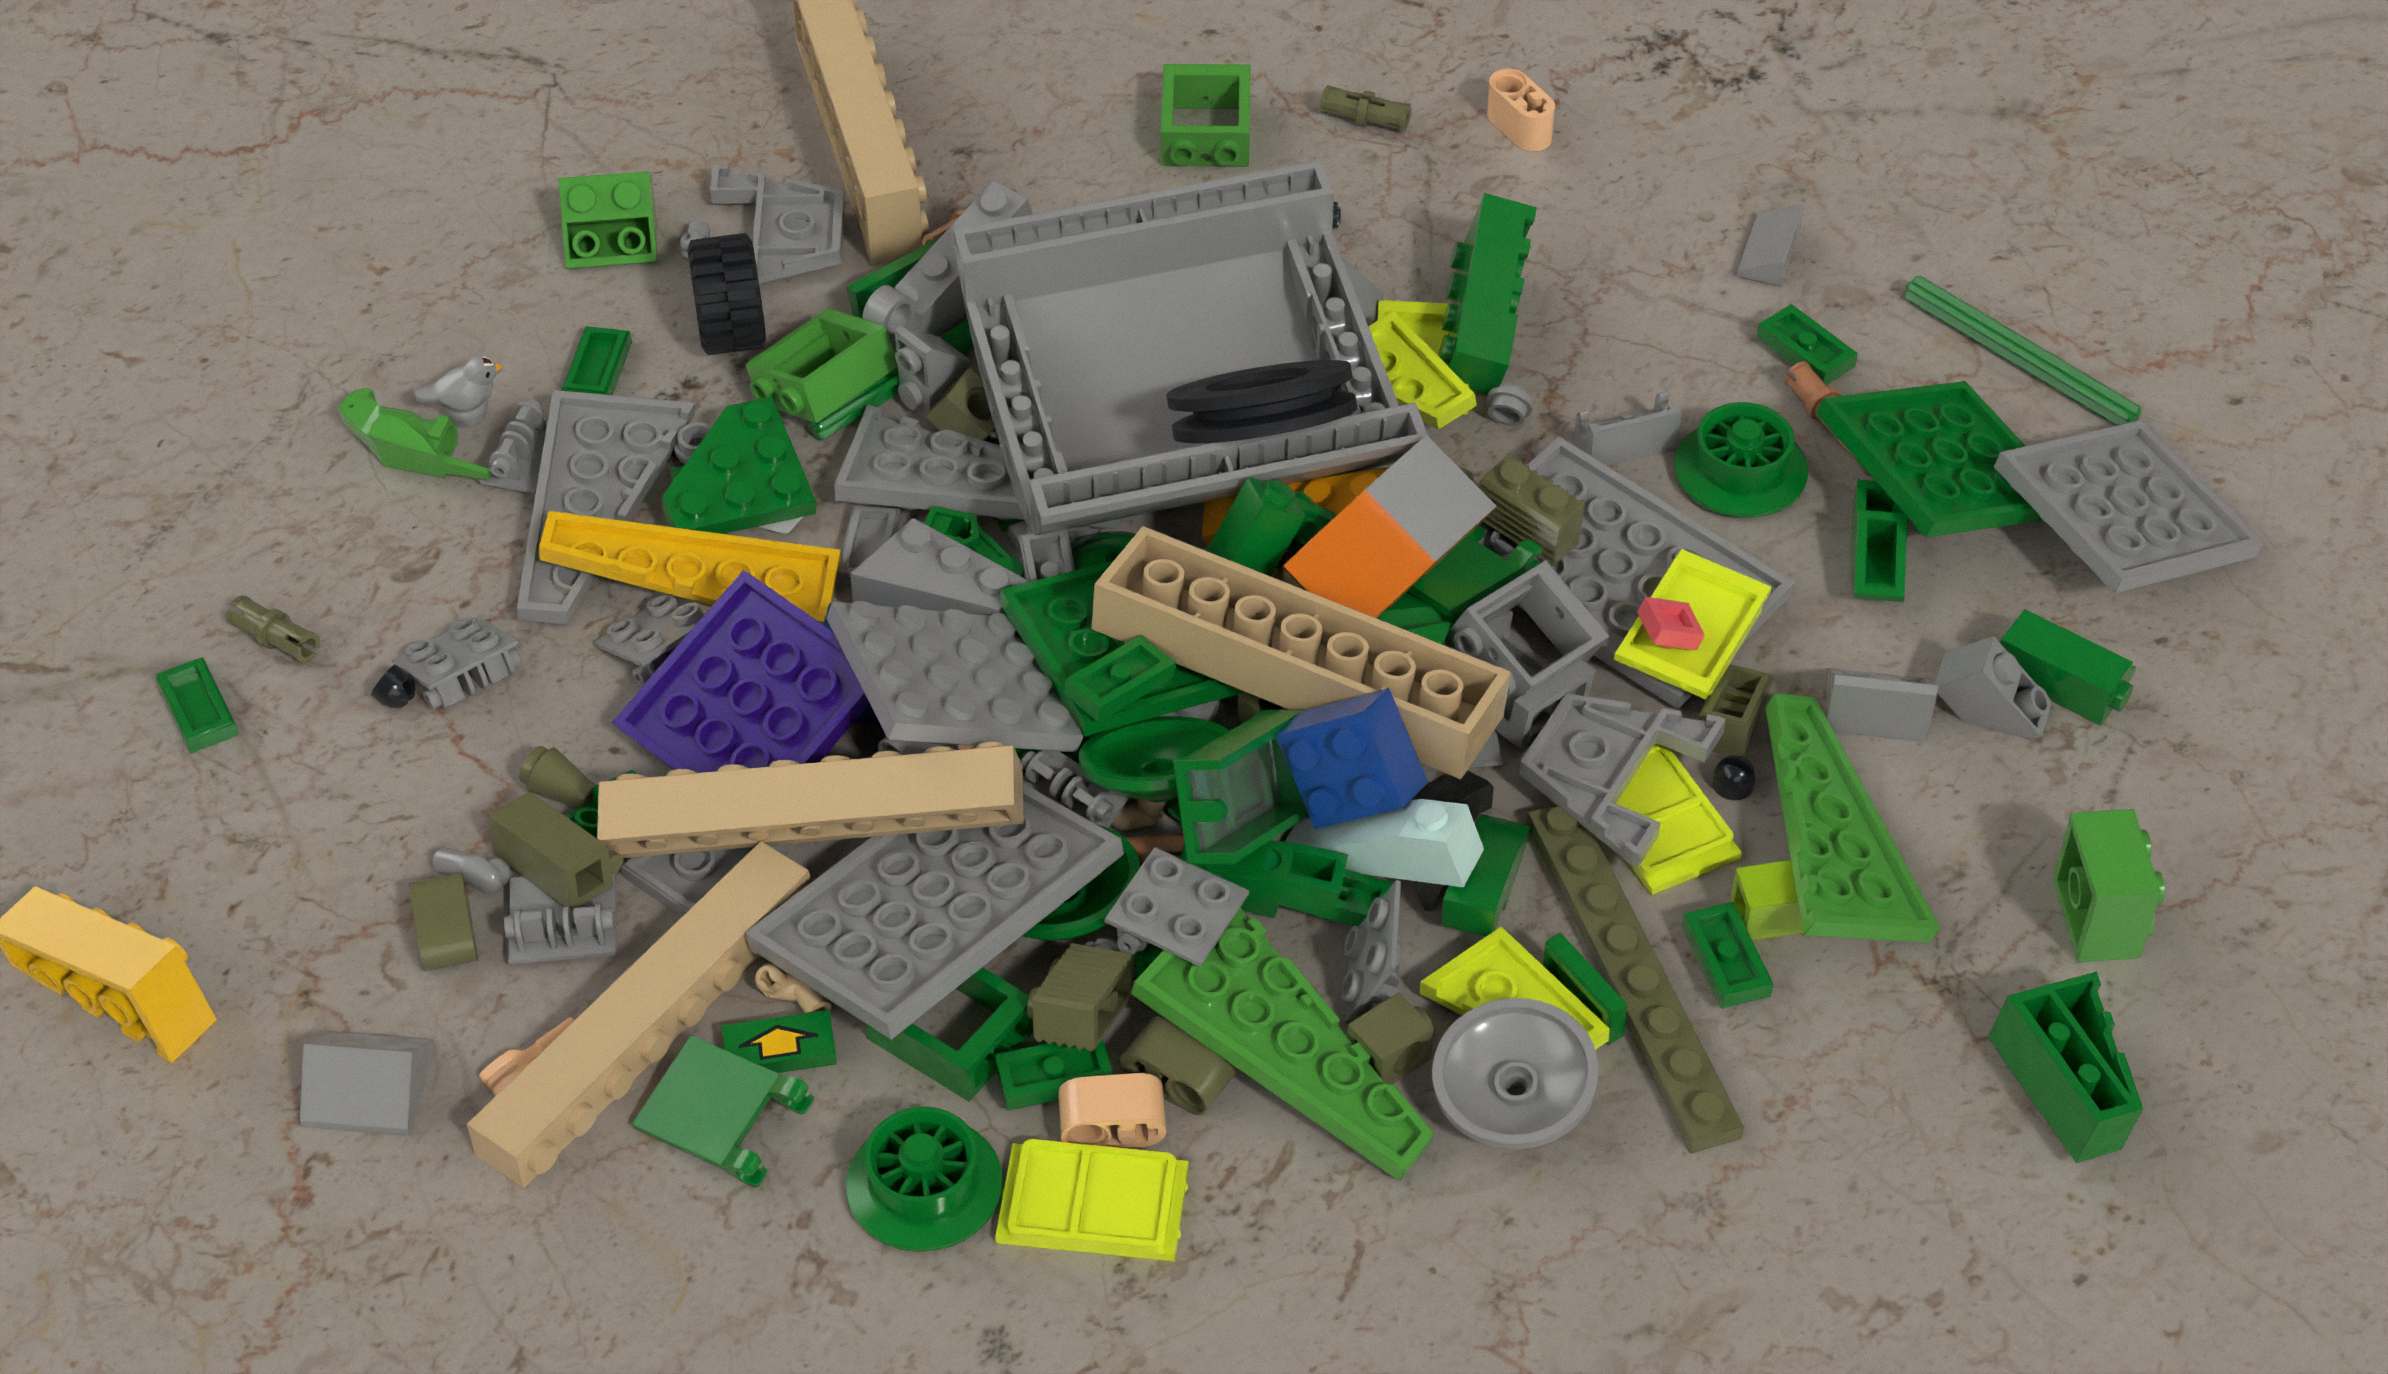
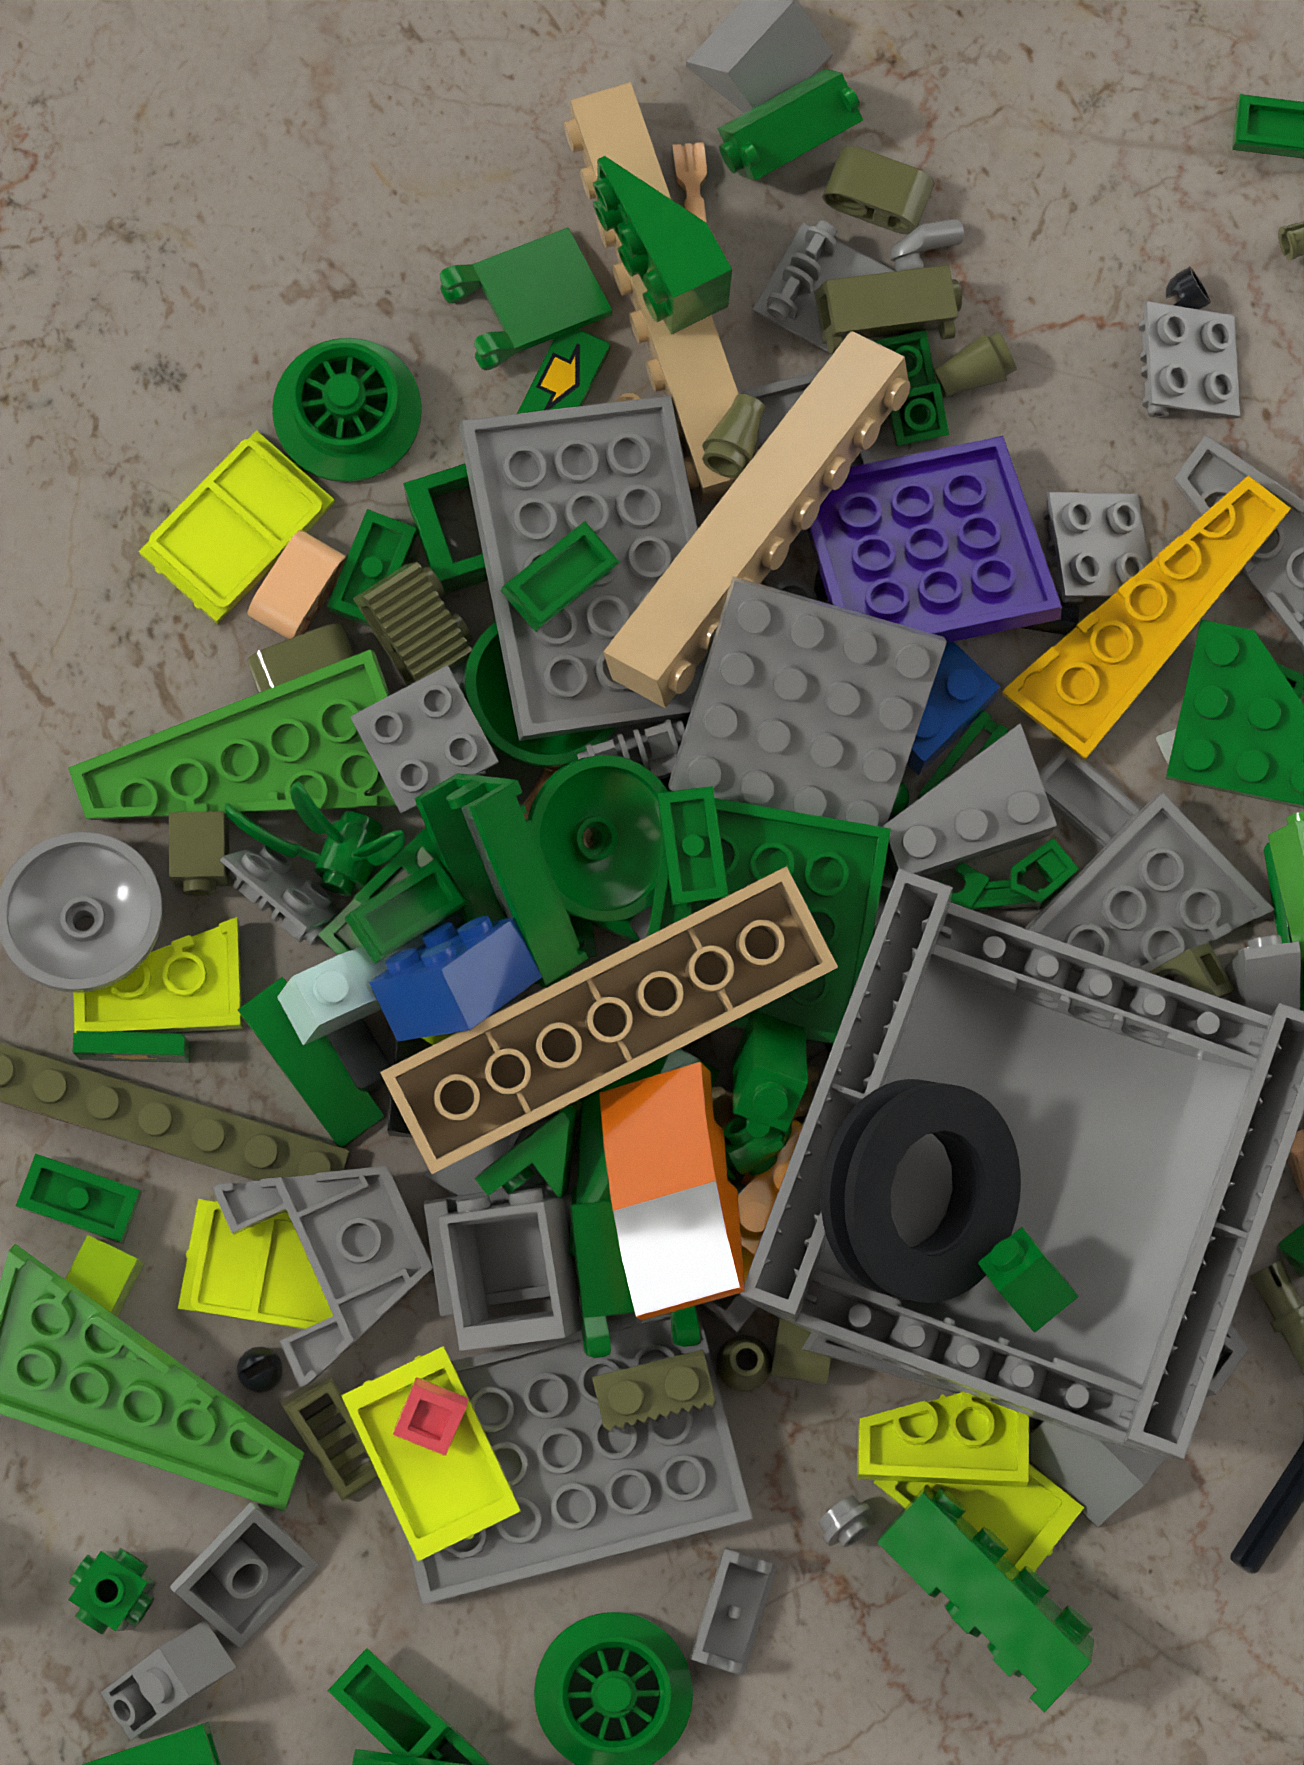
camera: 120 degrees right, 30 degrees up
(425, 1002) = (789, 125): none -> green brick
(628, 968) = (664, 246): none -> green slope
(752, 857) = (734, 438): none -> olive cone
(968, 889) = (560, 576): none -> green tile
(1267, 331) = (1028, 1279): none -> green brick
(1310, 939) = (349, 849): none -> green plant
(1324, 834) = (405, 910): none -> green tile
(1972, 755) = (133, 1591): none -> green brick

